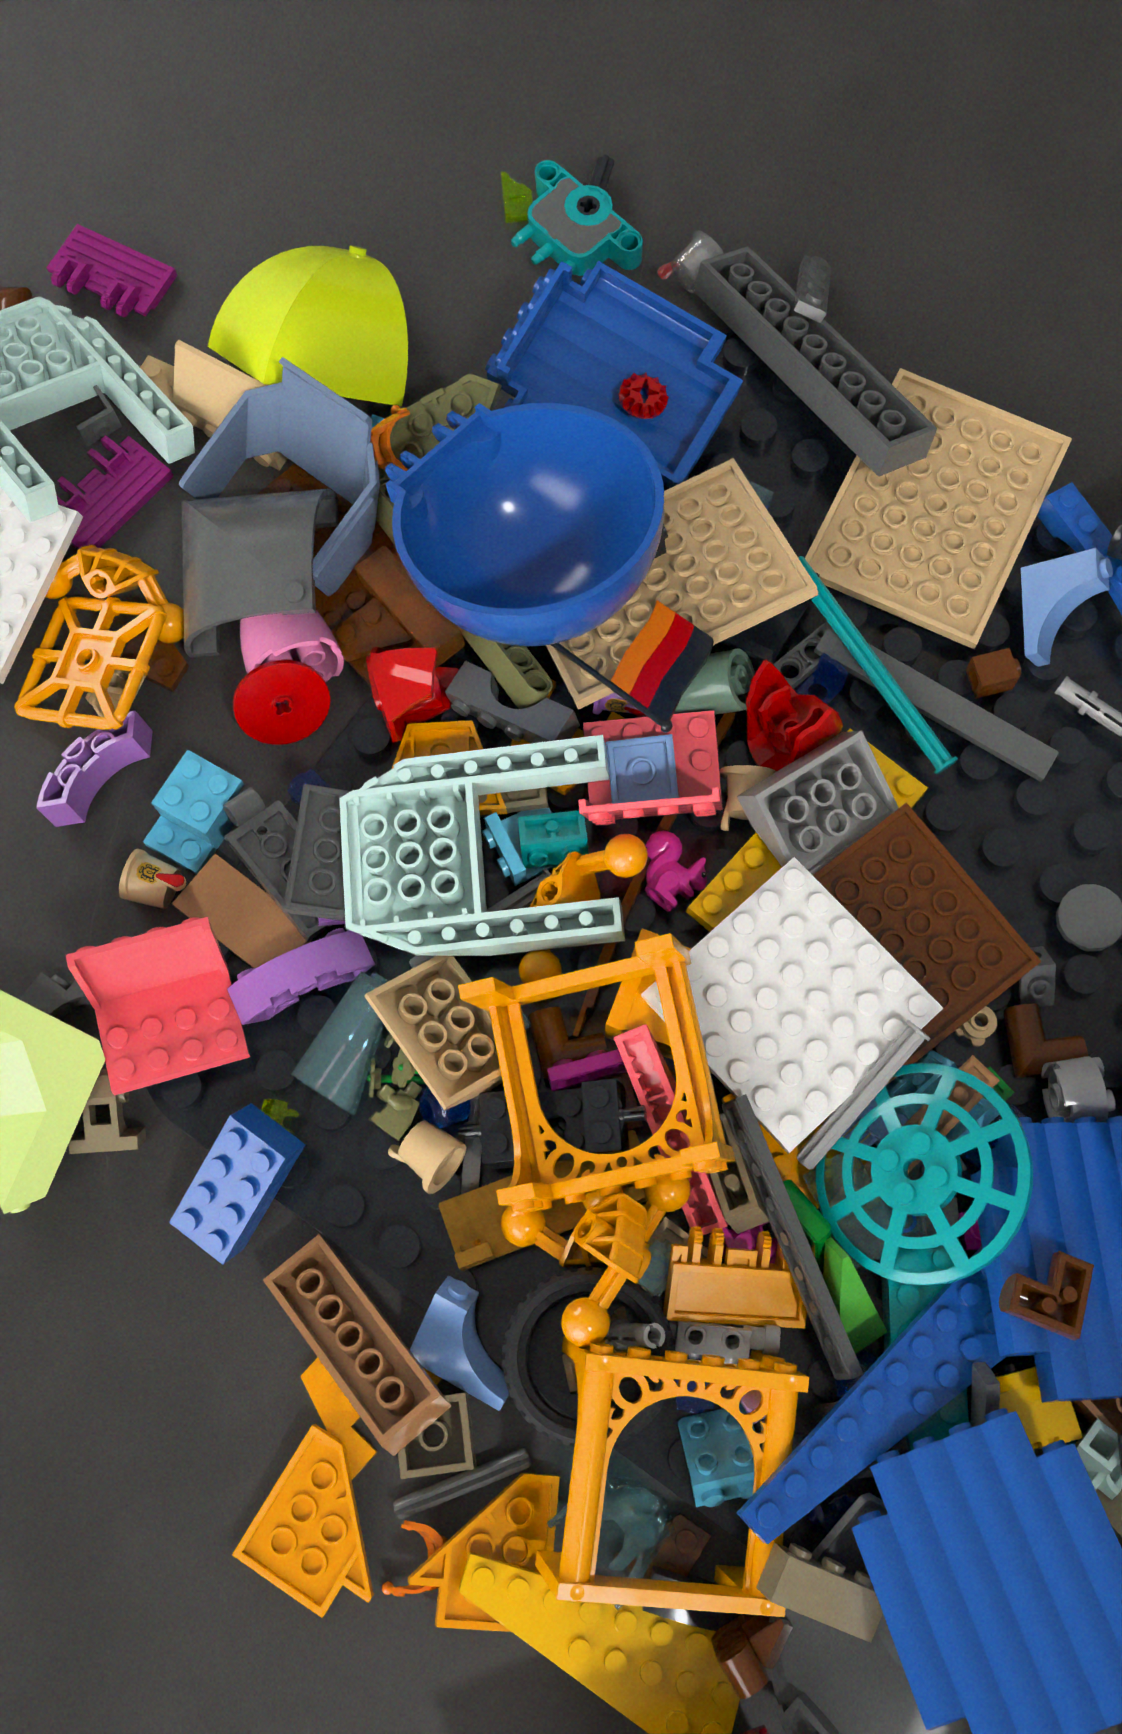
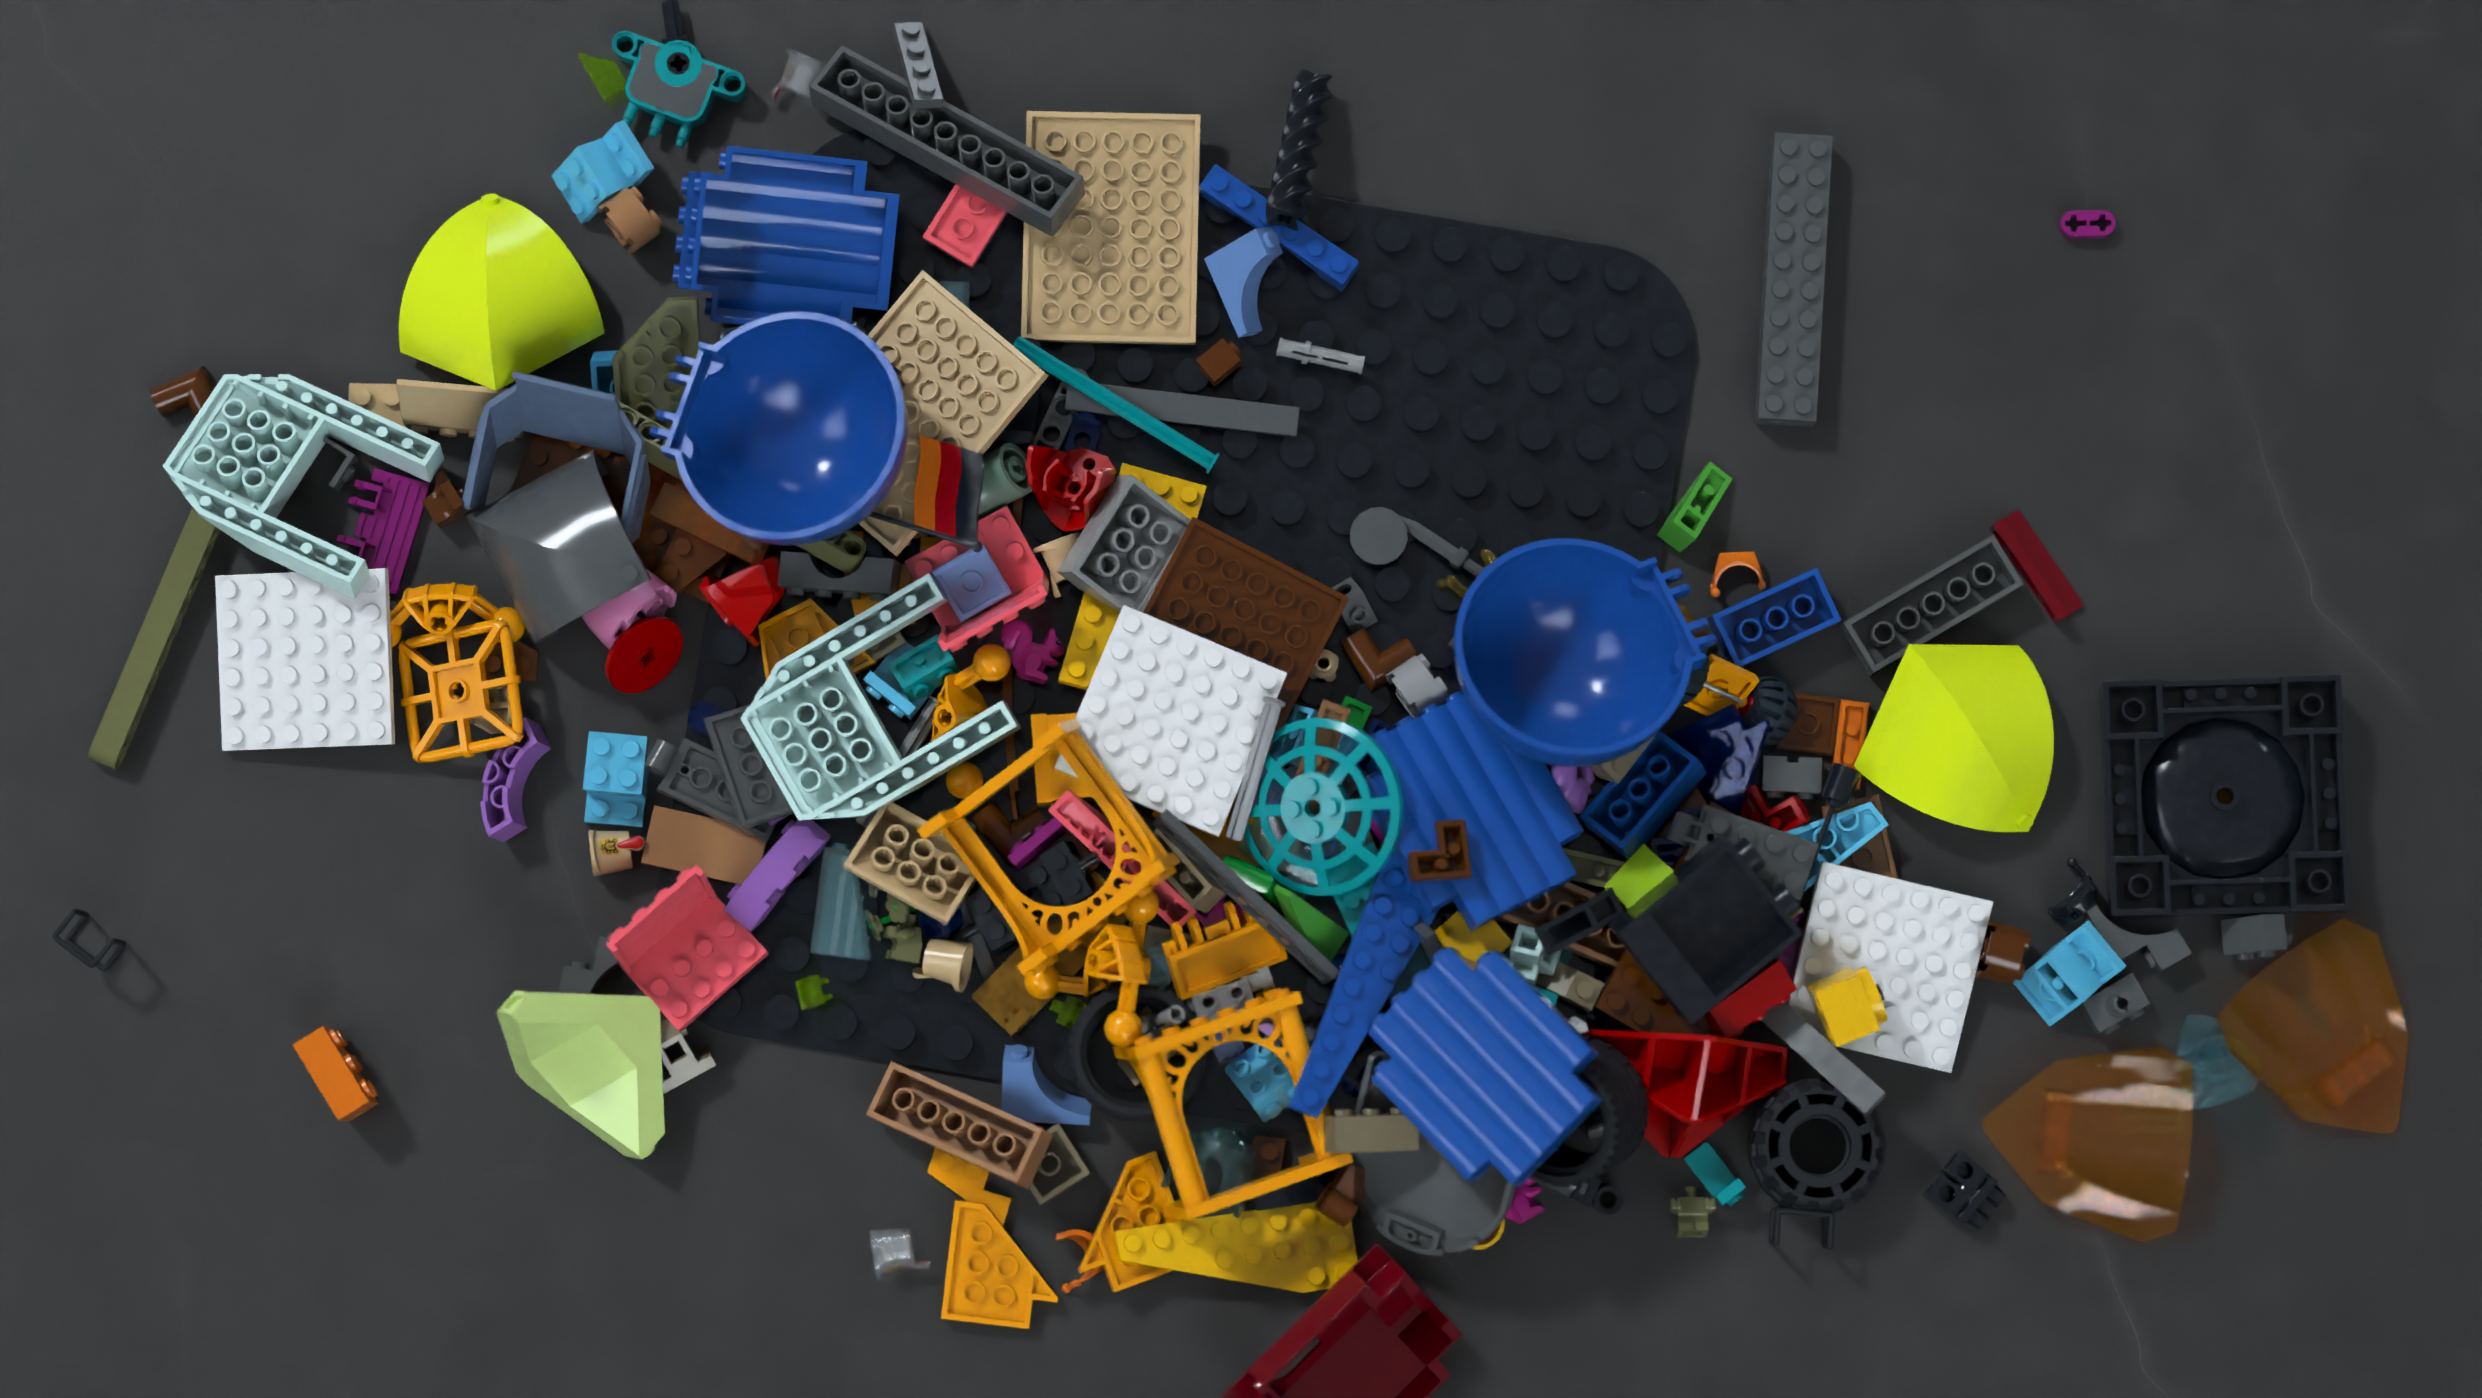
camera: 30 degrees left, 10 degrees up
(110, 272) = (267, 312): magenta hinge -> none
(166, 489) = (445, 501): none -> reddish brown brick
(217, 1449) = (893, 1251): none -> clear hat
(236, 1183) = (810, 1053): brick -> none
(381, 438) = (618, 386): orange helmet -> none
(462, 1483) = (1086, 1190): dark grey axle -> none
(472, 267) = (601, 170): none -> medium azure bracket
(475, 315) = (630, 219): none -> medium nougat brick
(534, 1270) = (1067, 1011): none -> clear neon green tile
(632, 399) = (813, 255): red gear -> none
(794, 445) = (964, 225): none -> coral plate

